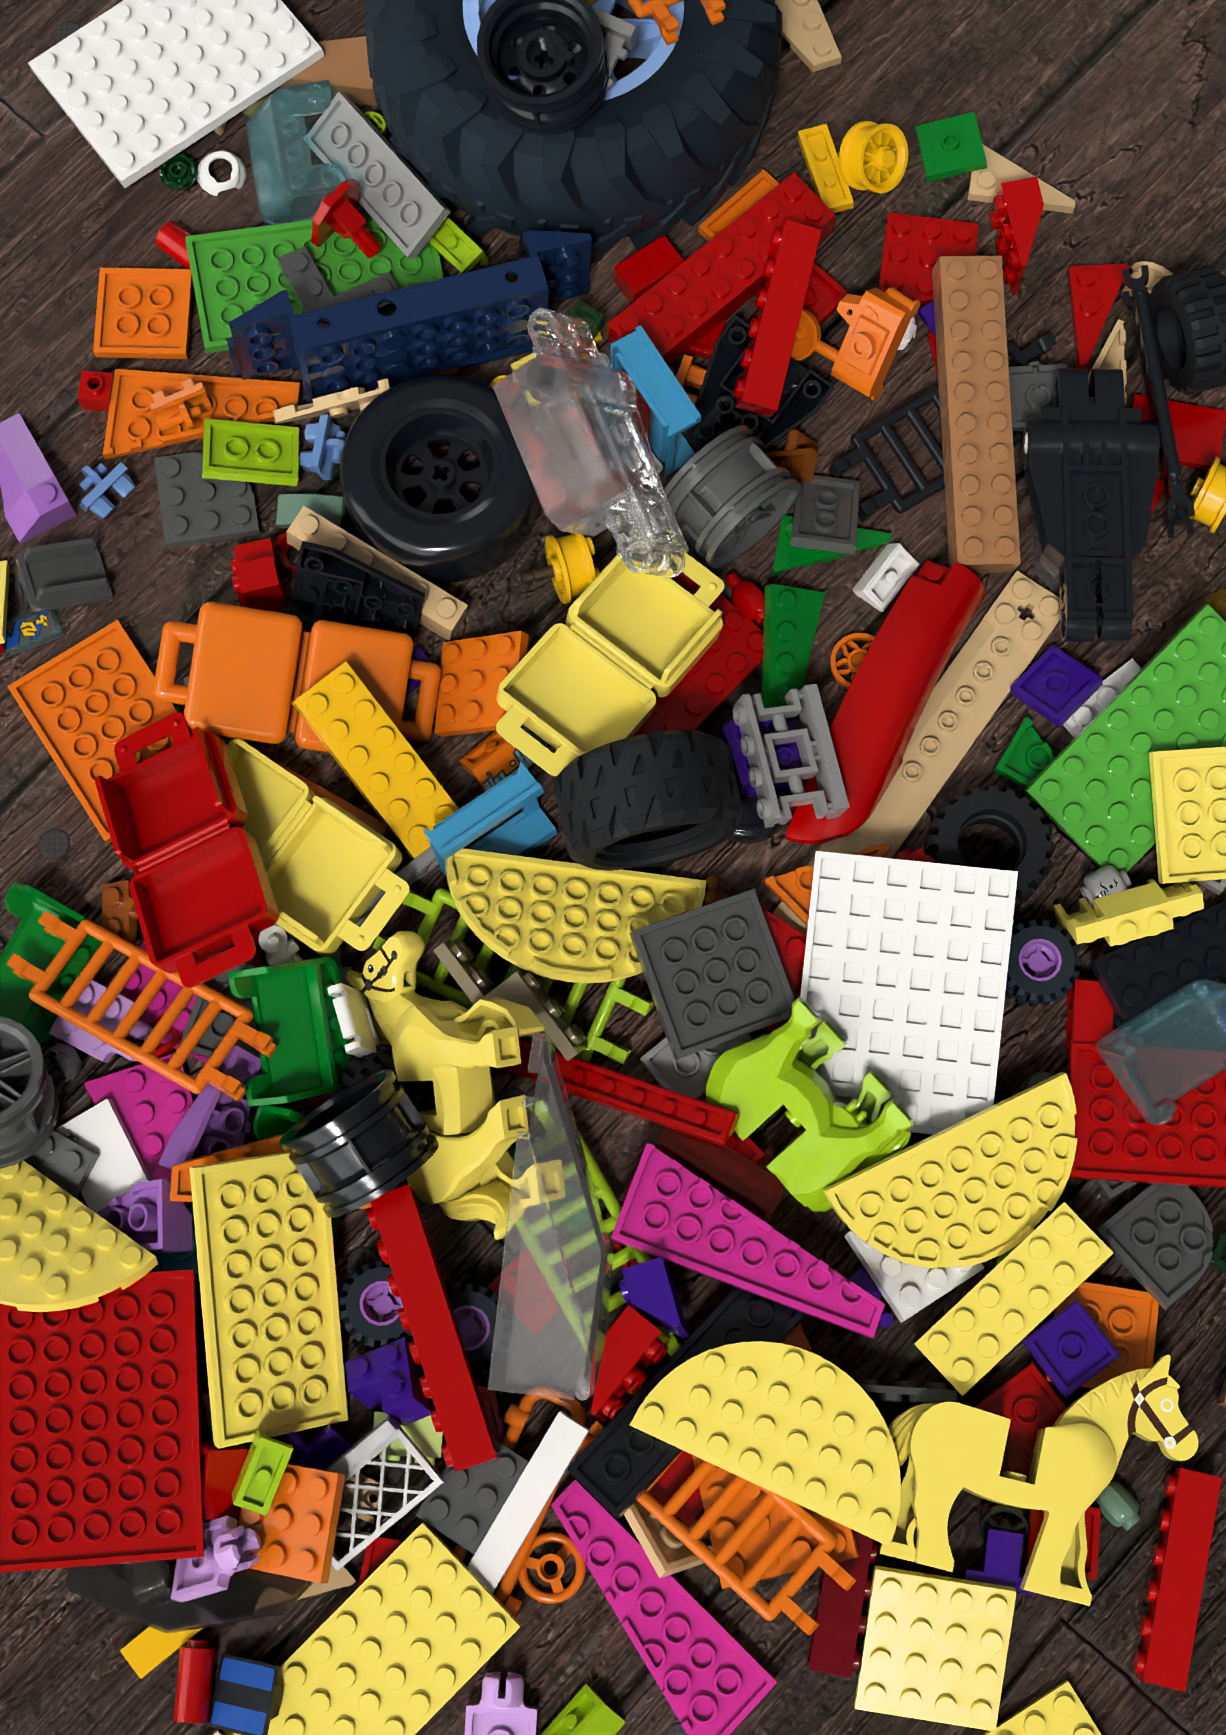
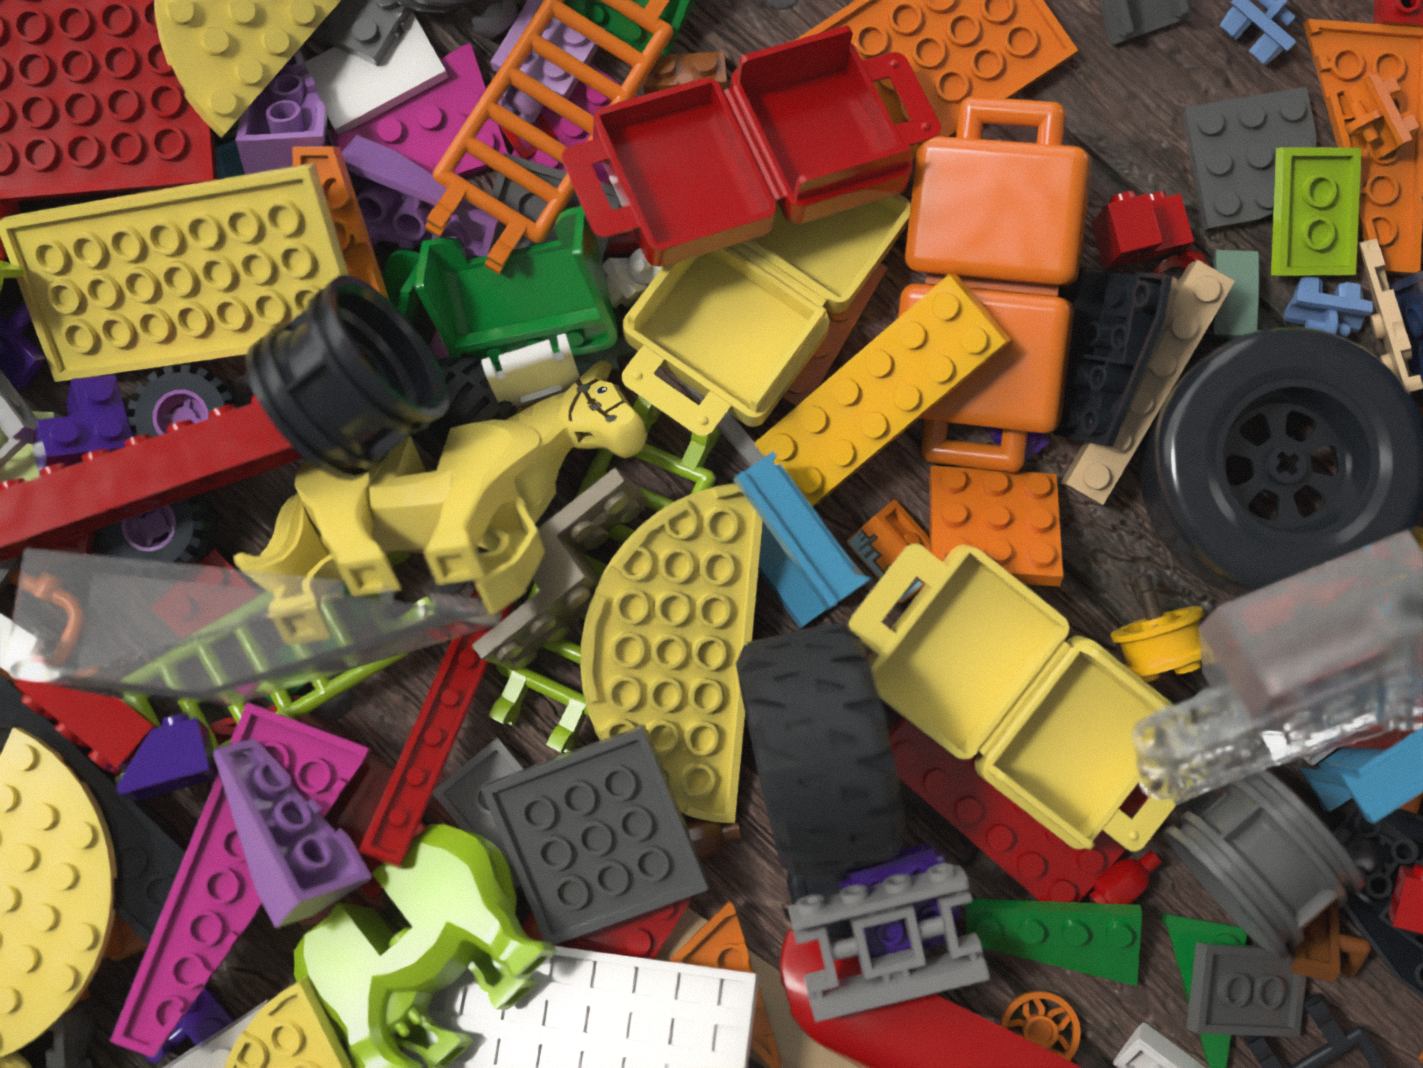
camera: 85 degrees right, 10 degrees up
(725, 1196) = (288, 846): none -> medium lavender wedge

